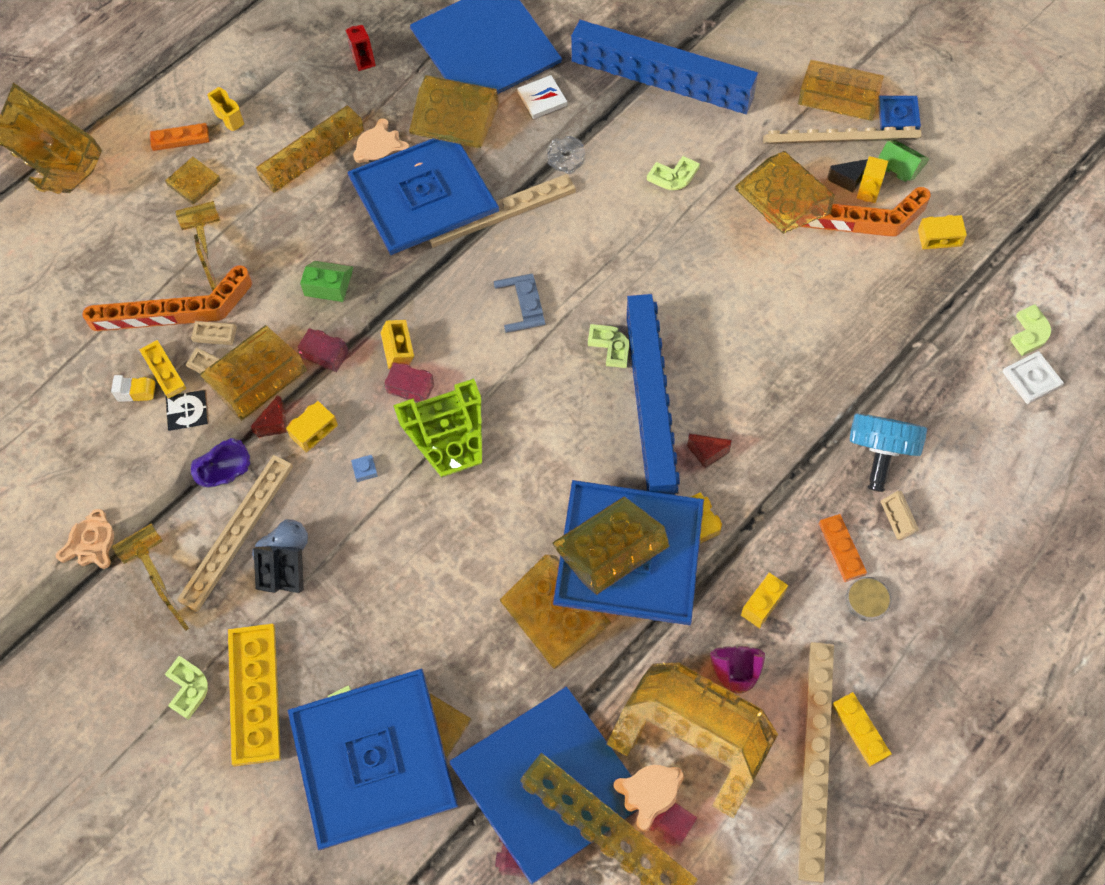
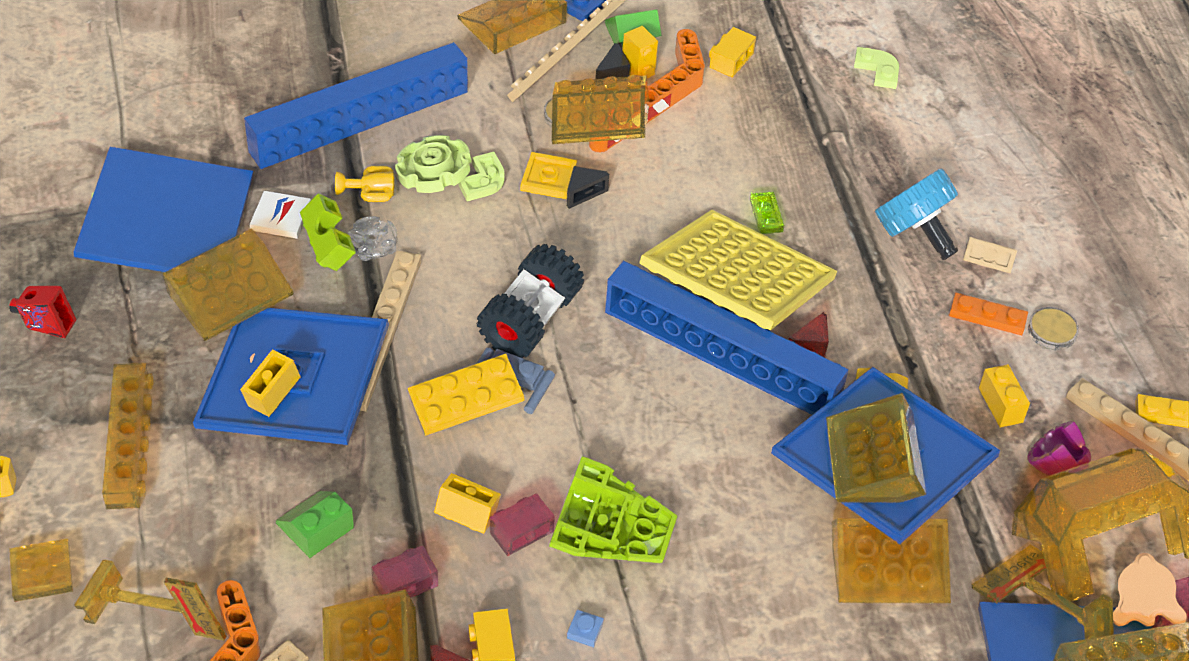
camera: 60 degrees left, 15 degrees down
(378, 143) = (185, 376): light nougat tile -> none
(392, 184) = (270, 383): none -> yellow brick
(482, 287) = (465, 394): none -> yellow plate
(535, 137) = (329, 244): none -> lime arch
(581, 268) = (543, 284): none -> black plate
(609, 697) = (1020, 571): none -> clear yellow piece
(610, 122) = (376, 183): none -> yellow piece
(615, 341) = (620, 336): yellowish green plate -> none
(655, 140) = (433, 163): none -> yellowish green piece
(711, 207) = (547, 175): none -> yellow plate
(719, 231) = (585, 185): none -> black slope
(719, 366) = (739, 269): none -> light yellow plate
(802, 351) = (766, 212): none -> clear neon green plate
(1033, 377) = (924, 94): white tile -> none

